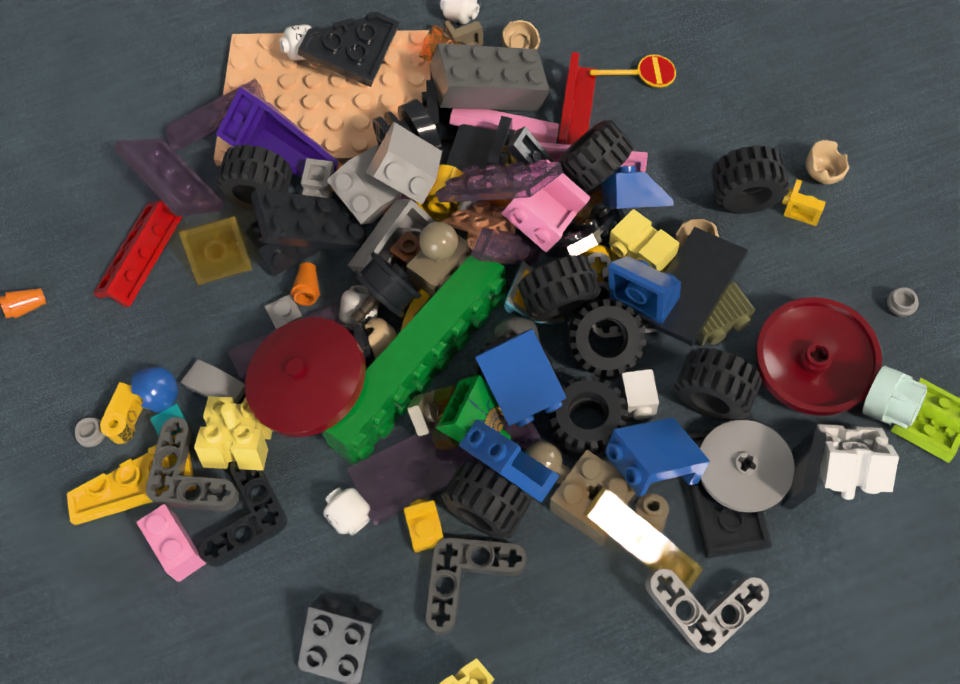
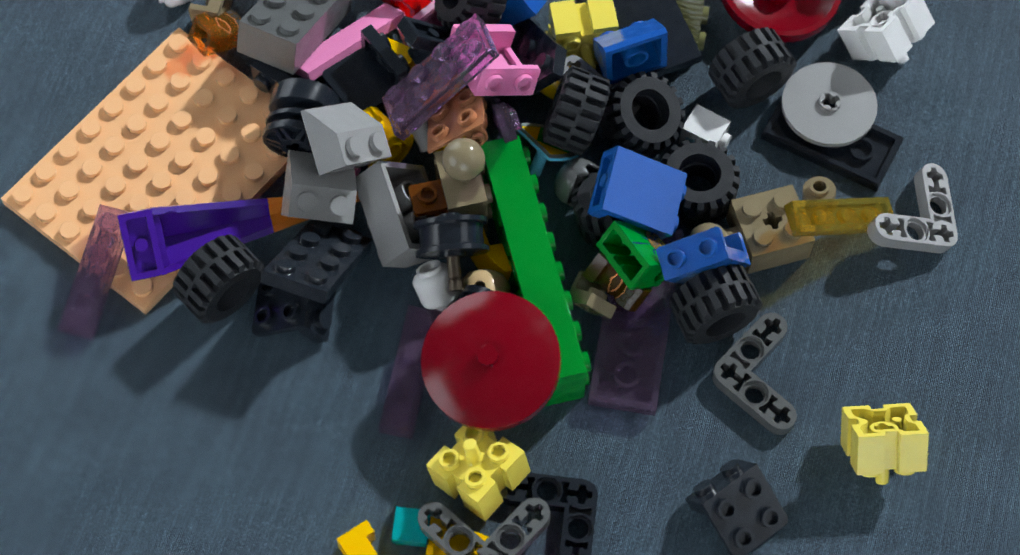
camera: 60 degrees left, 0 degrees up
(138, 254) = (193, 437): red fence -> none
(155, 387) = (369, 508): blue hair -> none
(169, 176) = (132, 358): clear purple plate -> none
(212, 382) = (401, 462): light grey slope -> none
(216, 250) = (260, 369): clear yellow slope -> none
(283, 311) = (377, 356): light grey plate -> none
(292, 40) = (91, 140): white head -> none
(306, 287) = (368, 317): orange cone -> none
(315, 178) = (265, 231): light grey slope -> none
(346, 511) = (628, 426): white head -> none
(351, 46) = (145, 99): black plate -> none
(423, 524) = (688, 376): yellow bracket -> none
(655, 453) = (777, 155): blue panel -> none
(807, 462) = (871, 61): black tile -> none

